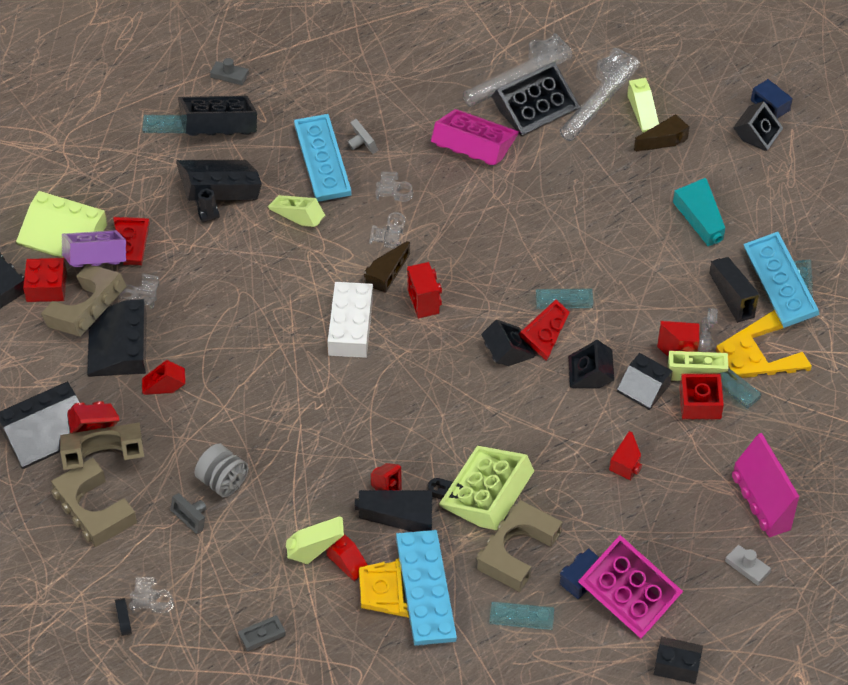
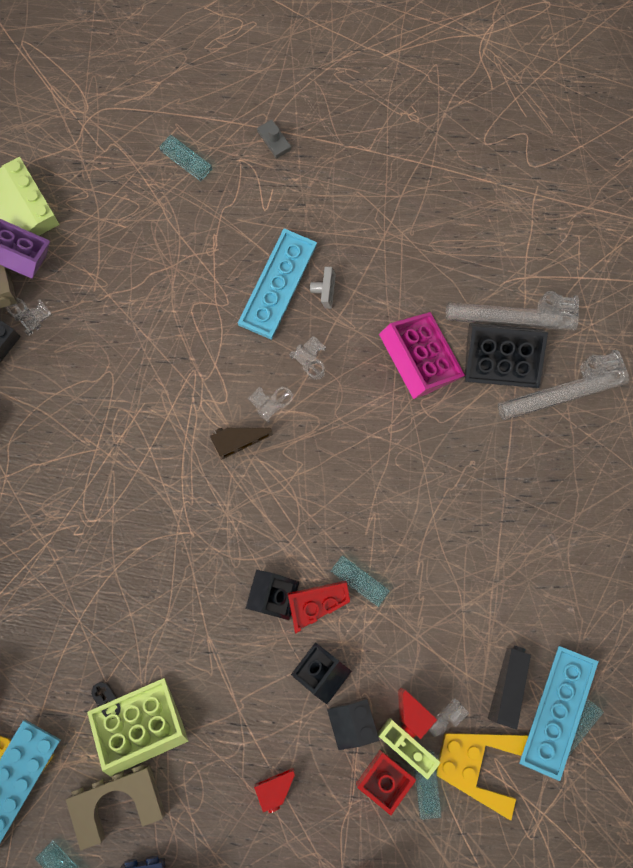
camera: 30 degrees right, 25 degrees up
(135, 232) = (64, 254): red wing -> none
(207, 206) = (143, 264): black piece -> none
(217, 115) = (224, 177): black slope -> none
(225, 177) = (171, 246): black slope -> none
(298, 209) = (213, 324): yellowish green slope -> none
(350, 319) = (164, 470): white brick -> none
(387, 477) = (61, 656): red slope -> none
(397, 508) = (51, 692): black slope -> none
(424, 289) = (243, 489): red brick -> none
(642, 103) = (594, 429): yellowish green slope -> none
(664, 135) = (589, 476): dark brown slope -> none
(700, 210) = (551, 582): teal slope -> none

